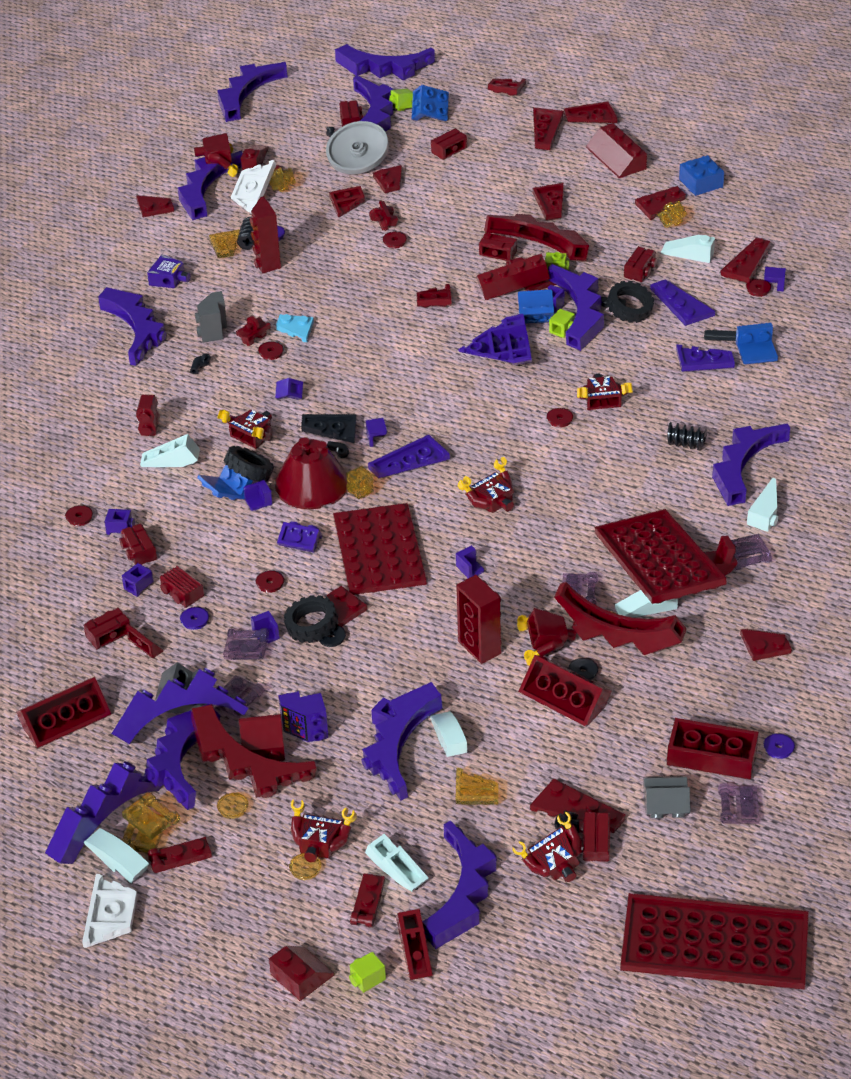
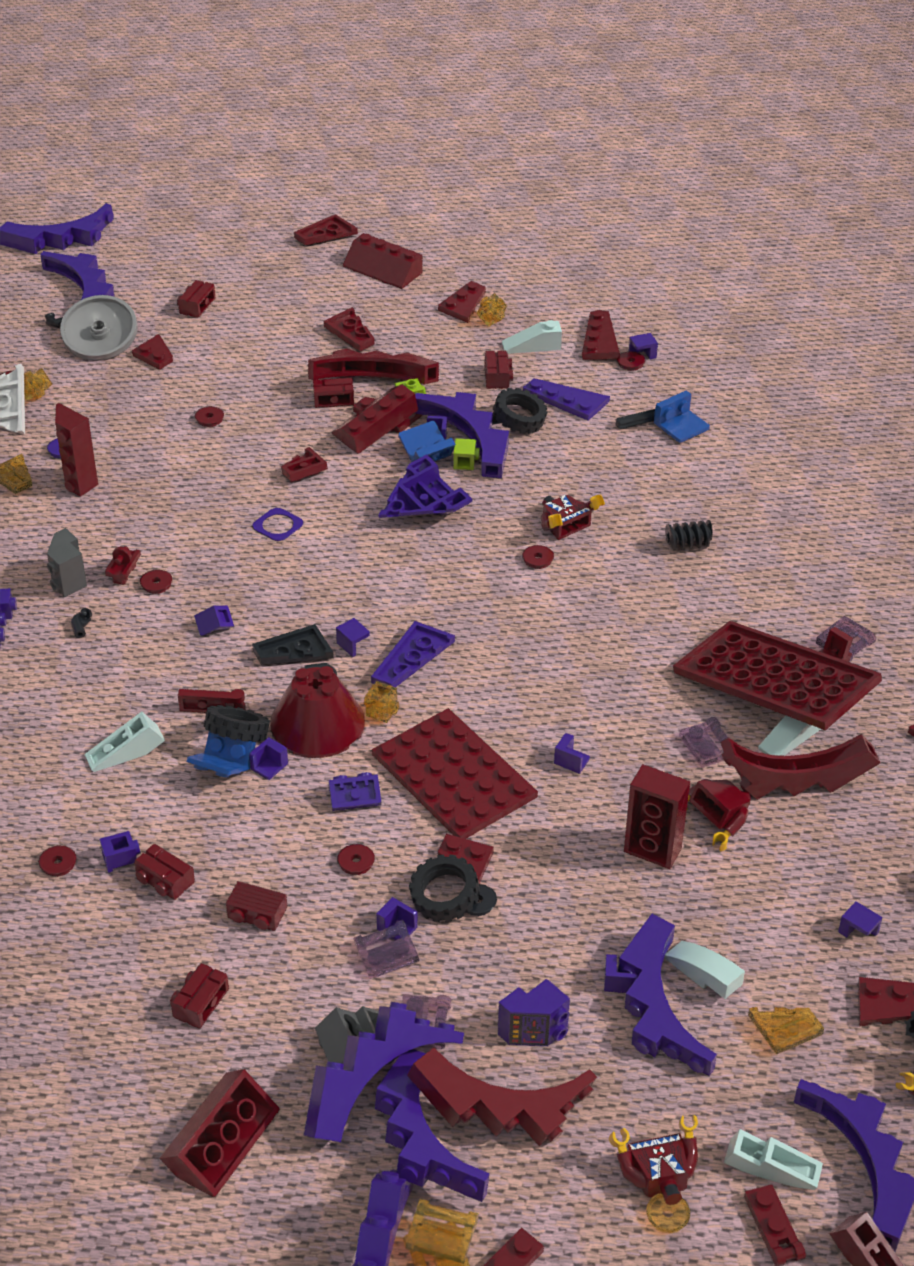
camera: 30 degrees left, 0 degrees up
(137, 579) = (194, 917): dark purple brick -> none
(143, 642) = (256, 996): dark red slope -> none
(147, 415) = (68, 704): dark red brick -> none
(194, 612) = (294, 932): dark purple piece -> none
(229, 799) = (521, 1159): clear yellow piece -> none
(235, 439) = (200, 700): none -> dark red plate
(244, 238) = (37, 454): black piece -> none
(249, 427) = (199, 675): dark red torso -> none
(263, 736) = (507, 1062): dark red slope -> none
(295, 325) = (165, 544): medium azure wing -> none
(346, 199) = (123, 387): dark red wing -> none
(350, 112) = (61, 295): dark red brick -> none
(371, 333) = (258, 524): none -> dark purple piece
(384, 216) = (181, 393): dark red hips -> none
(401, 99) = (112, 263): lime brick -> none
(430, 103) = (146, 260): blue bracket -> none
(492, 491) = (535, 661): dark red torso -> none
(506, 86) = (211, 224): dark red wing -> none
(546, 126) = (287, 255): dark red wing -> none
(564, 690) = (790, 867): dark red slope -> none
(582, 741) = (859, 918): none -> dark purple panel
(584, 663) = (788, 826): black piece -> none
(697, 359) = (632, 452): dark purple wing -> none
(701, 175) = (489, 263): blue brick -> none
(744, 446) = (760, 558): dark purple arch -> none
(764, 510) = (828, 585): light aqua slope -> none

